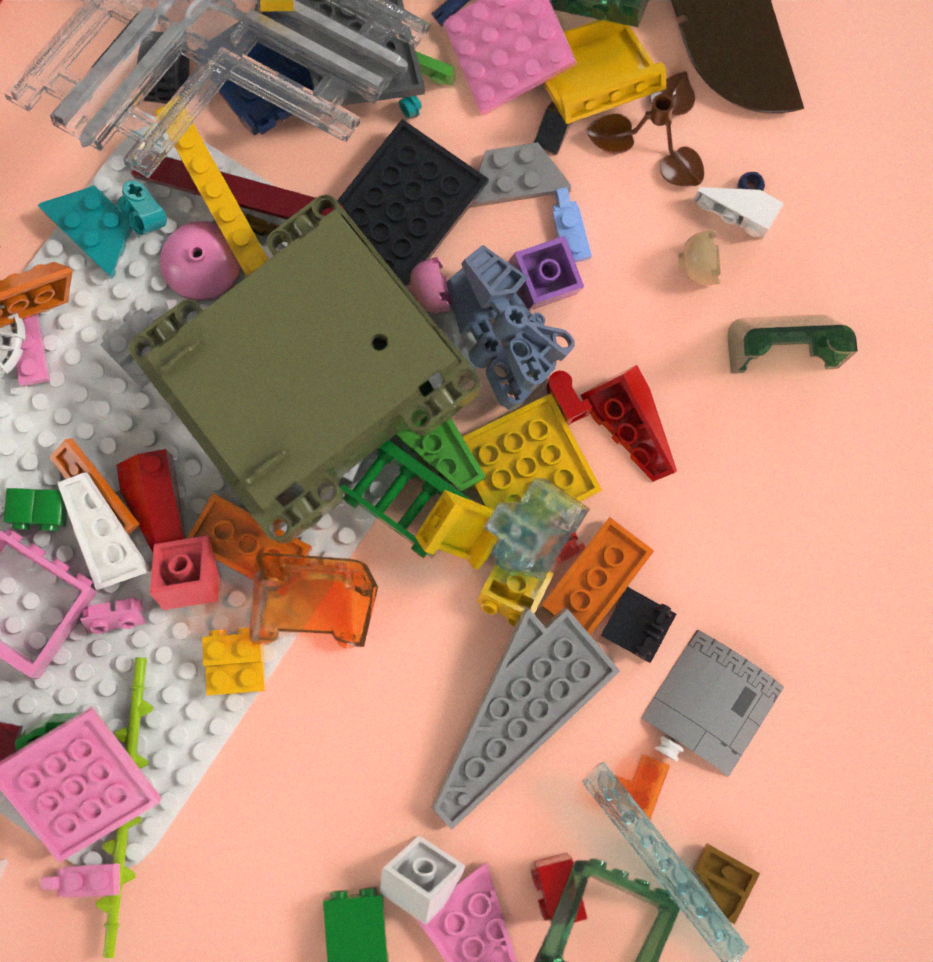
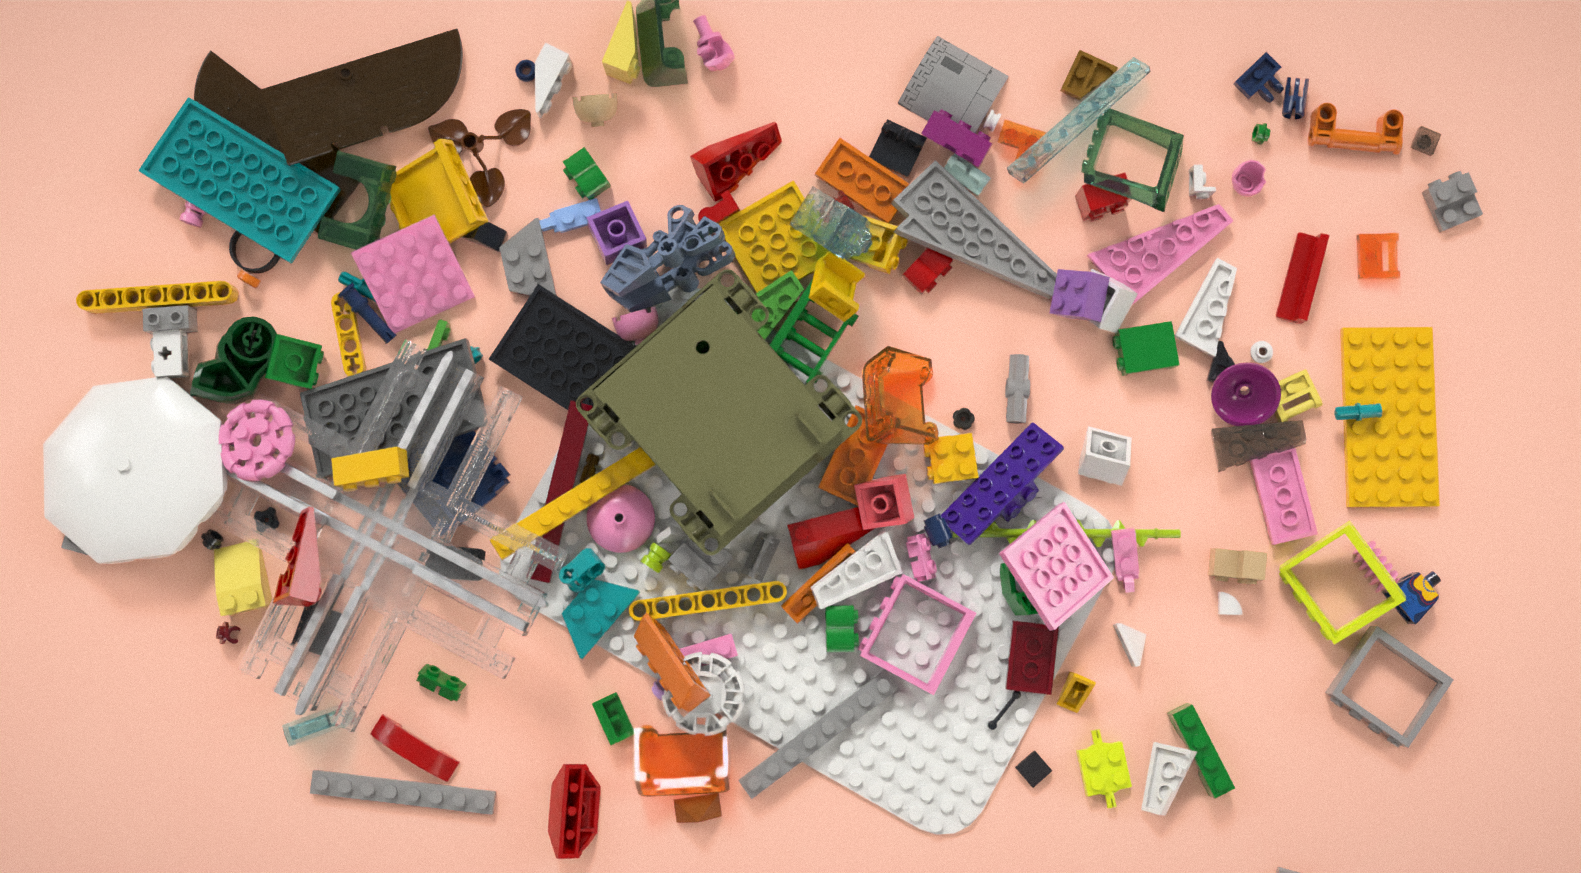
camera: 90 degrees left, 5 degrees up
(33, 46) = (431, 677): none -> green hinge
(94, 364) = (718, 594): none -> yellow beam
(136, 419) = (760, 556): none -> light grey hinge
(143, 638) = (937, 531): none -> dark blue brick
(148, 296) = (656, 557): none -> lime wheel
(193, 726) = (1004, 484): none -> dark purple bracket
(220, 865) = (1105, 456): none -> white slope
(280, 678) = (969, 418): none -> pearl dark grey plate
(317, 756) = (1017, 388): none -> light grey piece
(429, 845) = (1079, 295): none -> medium lavender brick
(478, 649) = (927, 269): none -> red brick
(601, 711) = (967, 174): none -> light aqua hinge
(621, 244) = (586, 174): none -> green brick
(647, 701) = (957, 137): none -> magenta wedge
(774, 402) = (711, 46): none -> bright pink piece
(775, 293) = (621, 55): none -> light yellow slope

